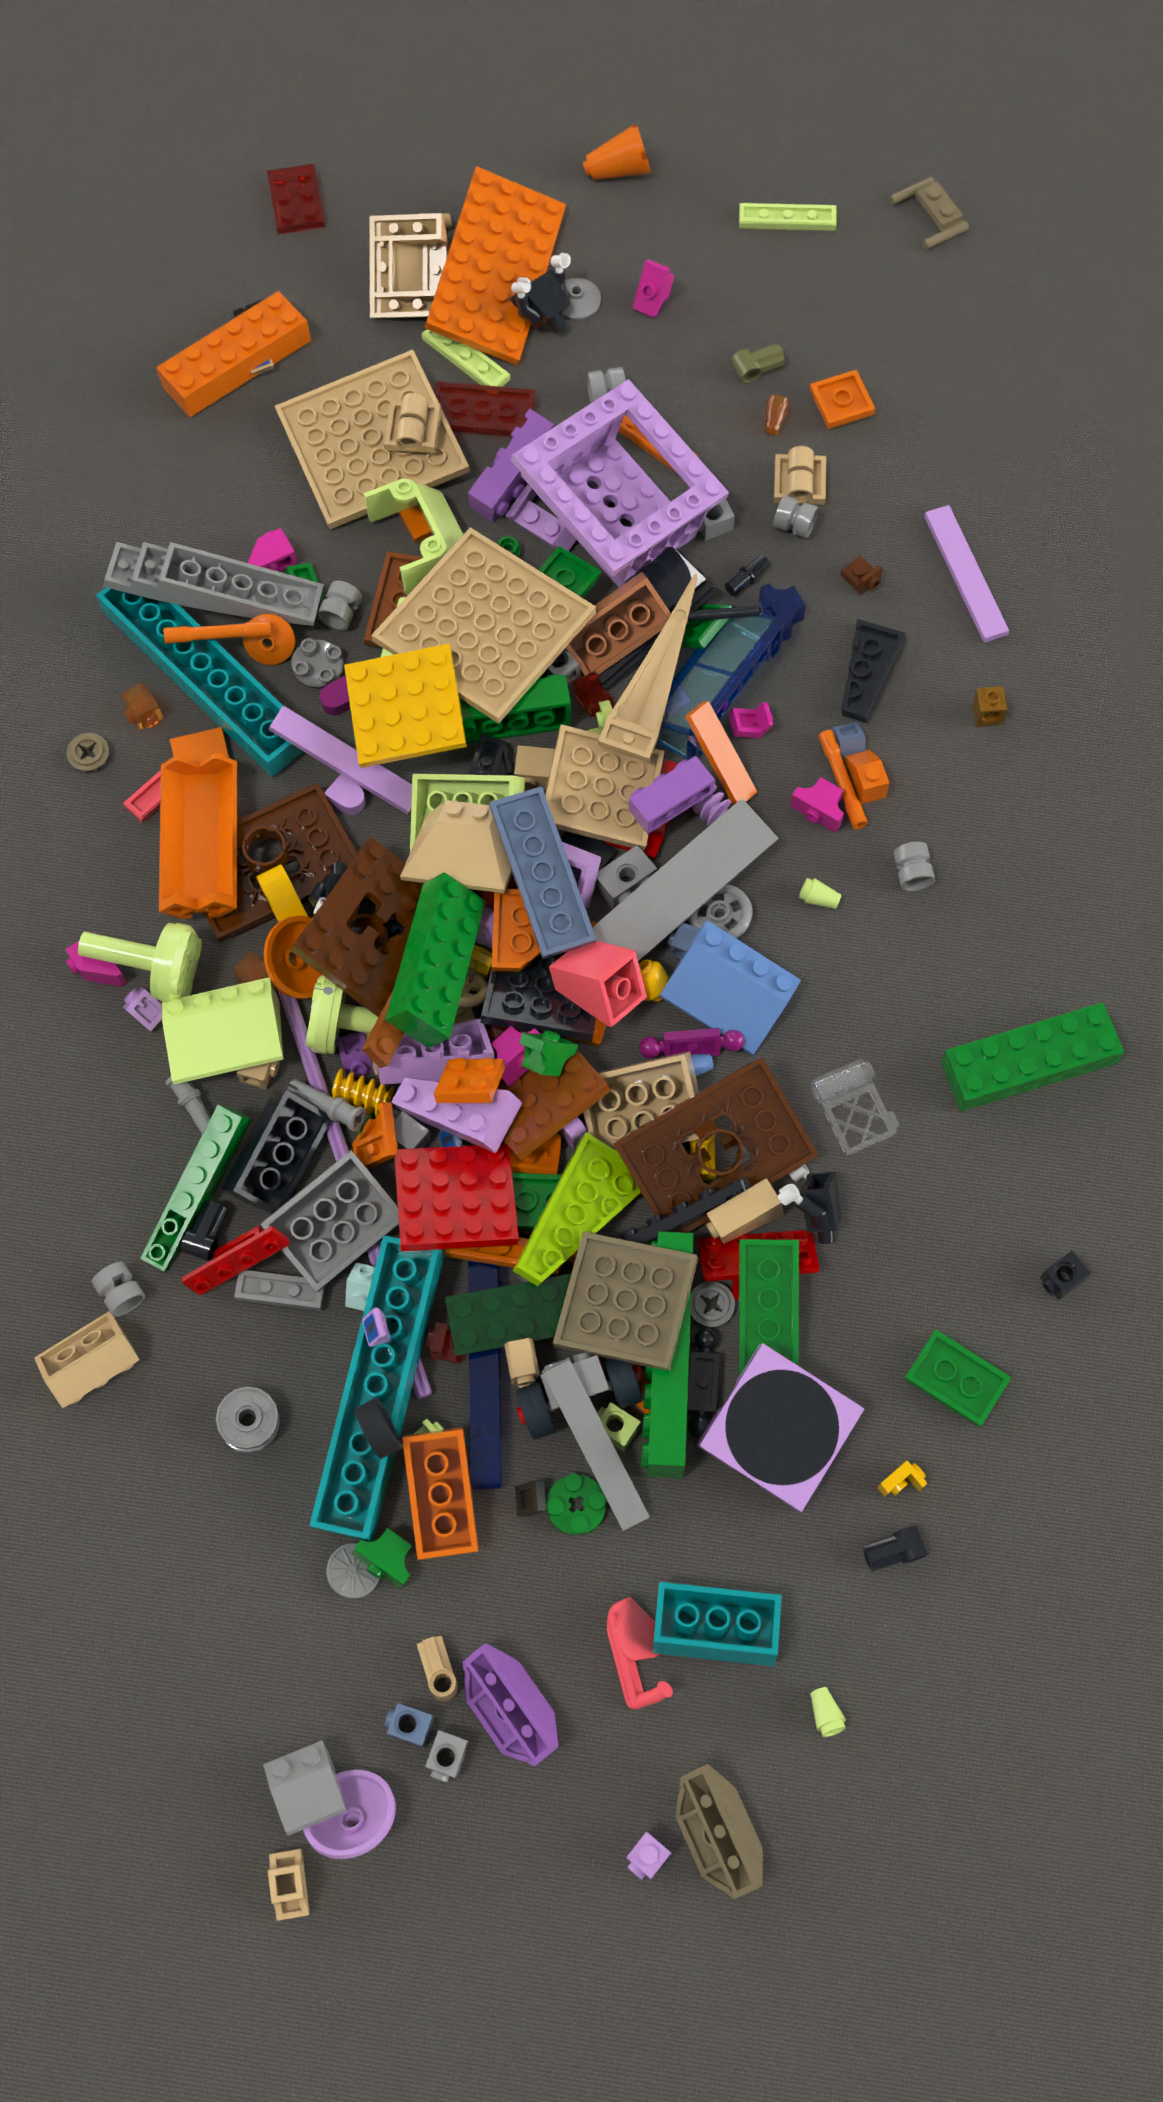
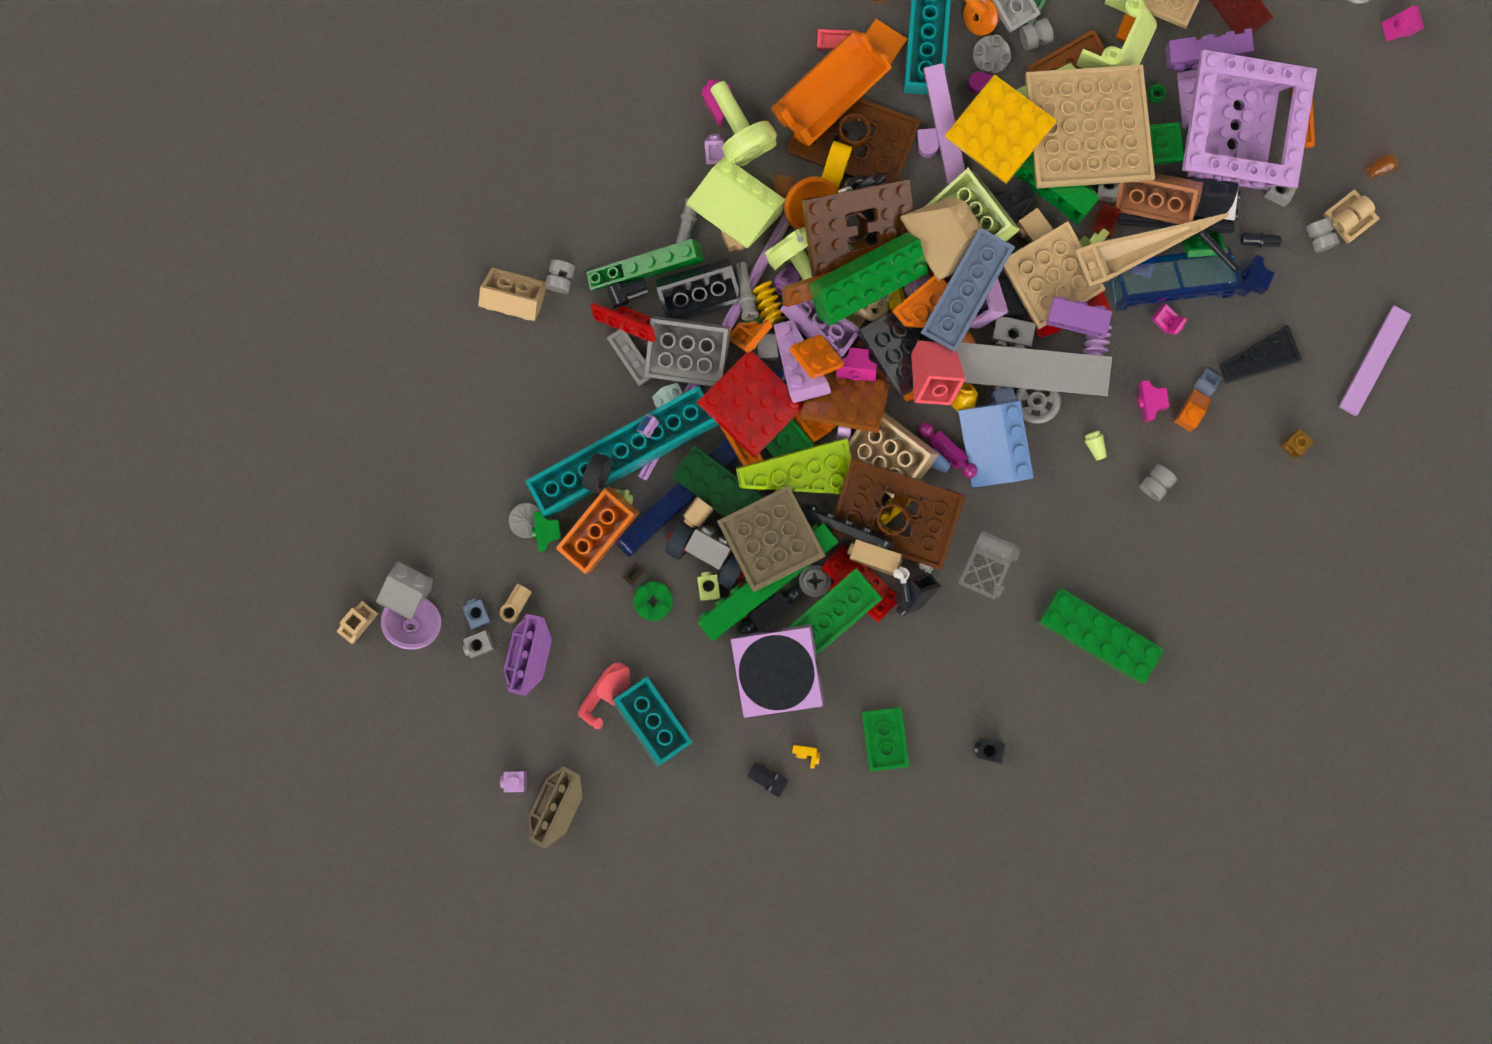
camera: 50 degrees right, 15 degrees up
(237, 1405) = (549, 390): light grey wheel -> none
(441, 1344) = (673, 462): clear red bracket -> none
(546, 1052) = (868, 382): green brick -> none
(595, 1444) = (687, 585): light grey tile -> none
(601, 383) = (1312, 54): light grey wheel -> none
(720, 753) = (1129, 322): tile -> none
(751, 364) = (1404, 123): olive piece -> none
(827, 1713) = (657, 811): yellowish green cone -> none
(842, 399) = (1428, 195): orange plate -> none
(852, 805) = (1190, 380): orange piece -> none
(862, 575) = (1319, 303): reddish brown bracket -> none

